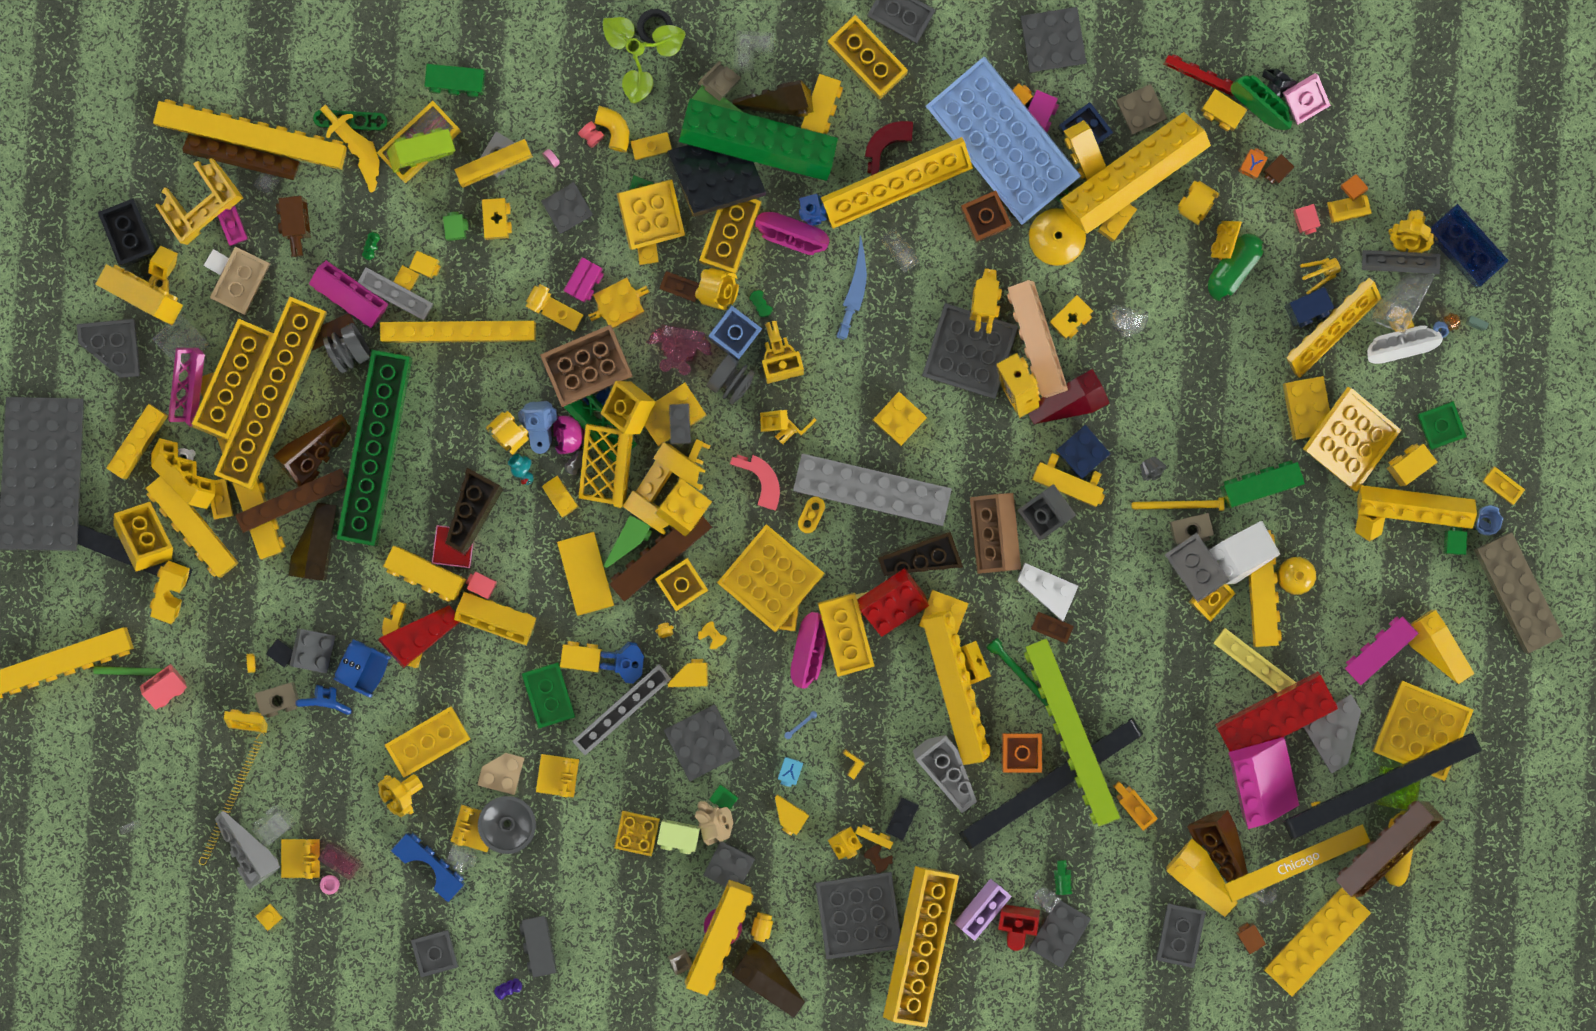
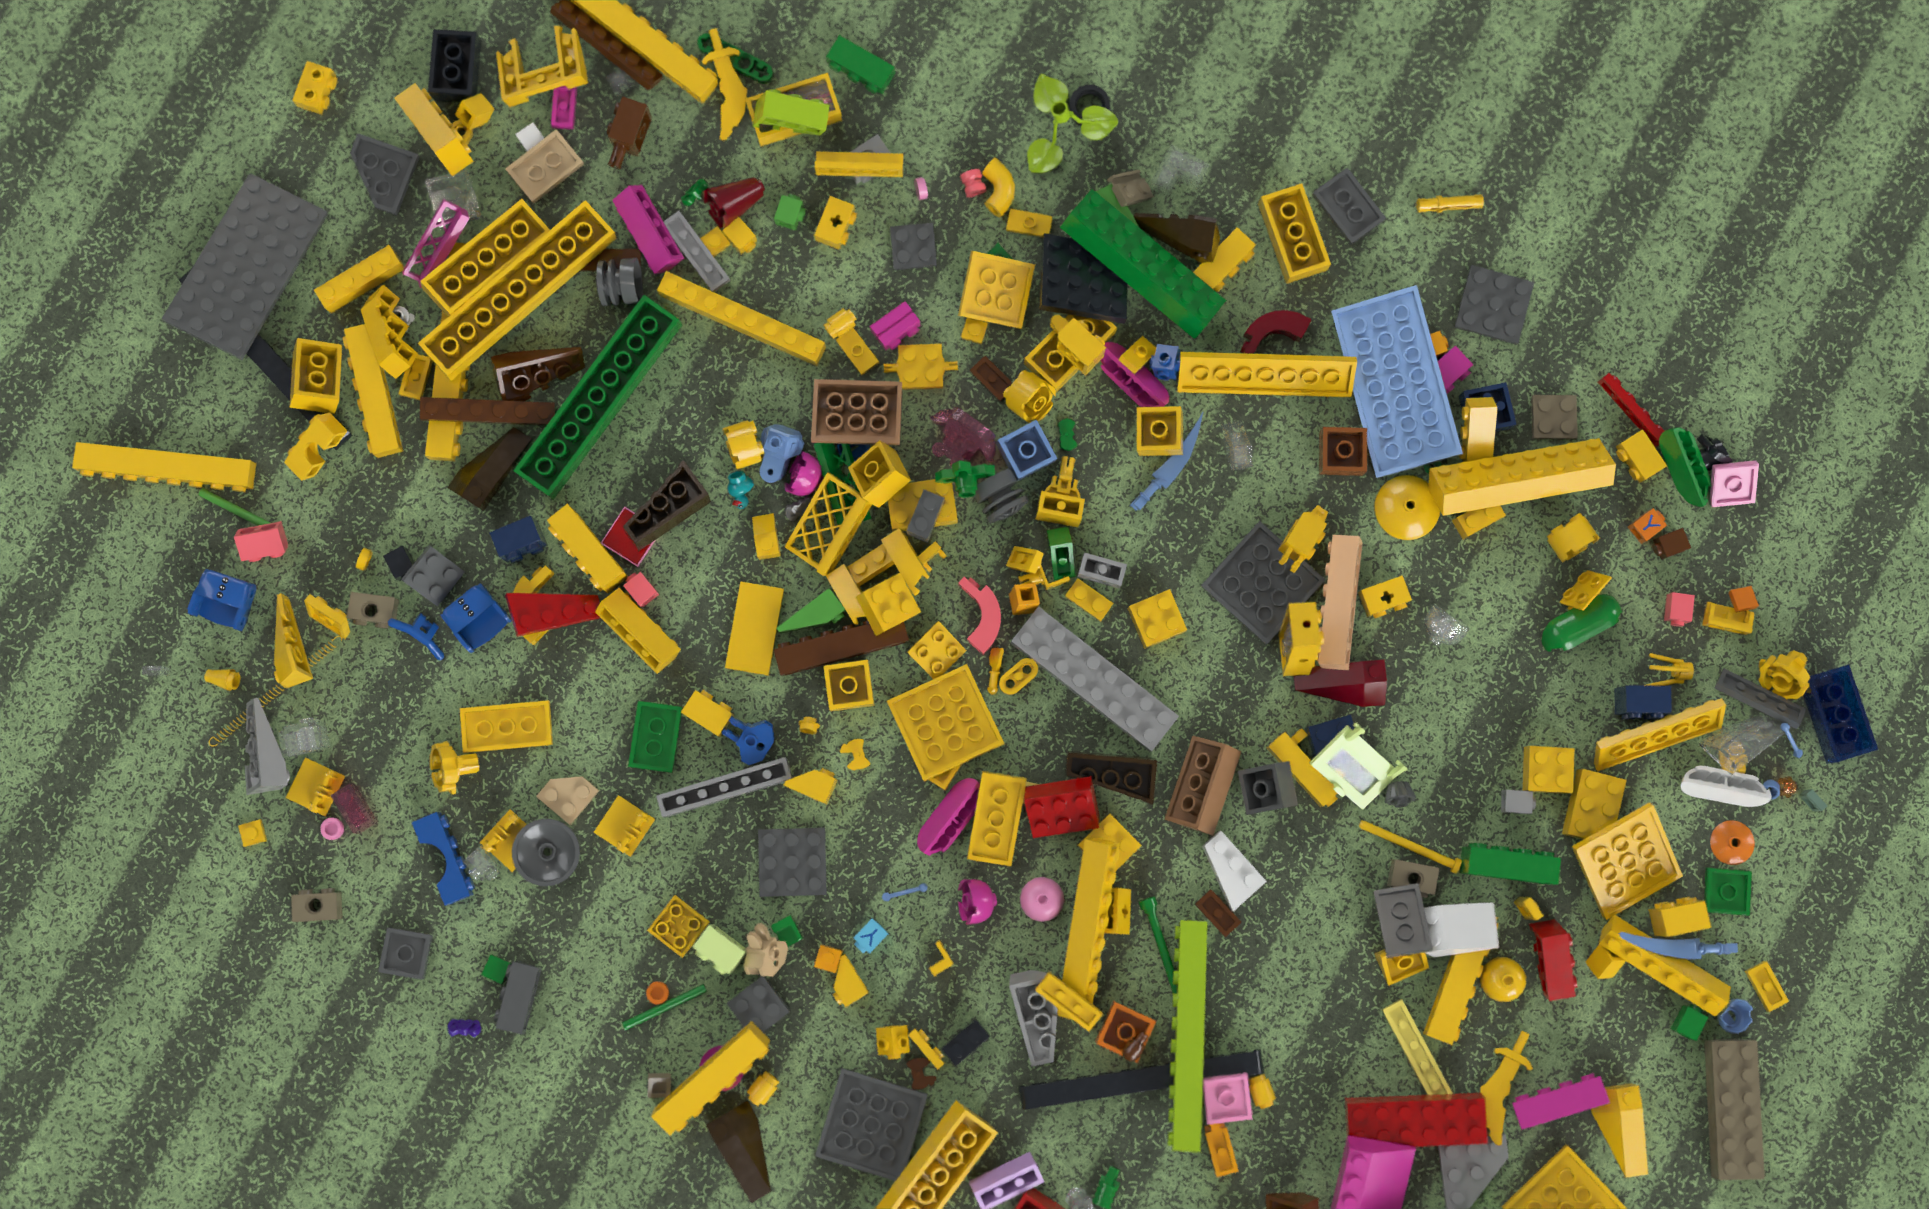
camera: 20 degrees right, 5 degrees down
(23, 303) = (315, 88): none -> yellow brick
(155, 746) = (222, 599): none -> blue piece
(188, 807) = (226, 679): none -> yellow cone
(230, 764) = (289, 654): none -> yellow wedge
(339, 957) = (303, 905): none -> dark tan brick
(366, 591) = (519, 539): none -> dark blue brick
(405, 238) = (732, 199): none -> dark red cone
(510, 932) = (495, 969): none -> green tile
(645, 892) = (657, 992): none -> orange tile
(656, 899) = (655, 1011): none -> green bar
(697, 379) = (965, 477): none -> green plant
(736, 231) = (1078, 343): none -> yellow hinge
(737, 524) = (936, 650): none -> yellow hinge
(765, 804) = (828, 958): none -> light orange brick
(787, 214) = (1138, 355): none -> yellow plate
(787, 452) = (1024, 598): none -> light orange brick
(787, 511) = (995, 661): none -> yellow piece
(800, 401) = (1061, 553): none -> green slope
(833, 268) = (1159, 431): none -> yellow brick
(838, 401) = (1102, 570): none -> light grey brick
(839, 428) = (1089, 599): none -> yellow plate
(860, 706) = (977, 901): none -> dark pink cylinder
(910, 680) = (1042, 899): none -> bright pink cylinder
(967, 750) = (1068, 1001): none -> yellow tile
(1034, 761) = (1134, 1047): none -> reddish brown cylinder
(1107, 464) = (1355, 767): none -> yellowish green piece
(1123, 767) = (1227, 1098): none -> bright pink tile
(1148, 749) = (1261, 1091): none -> yellow brick
(1247, 431) = (1517, 802): none -> light grey brick
(1259, 395) = (1548, 769): none -> yellow brick
(1291, 511) = (1528, 908): none -> yellow plate
(1329, 542) = (1554, 960): none -> red wedge
(1330, 659) = (1499, 1086): none -> yellow sword
(1420, 389) = (1722, 845): none -> orange dish
(1422, 488) = (1679, 948): none -> medium blue sword
(1449, 290) = (1797, 752): none -> medium blue hinge

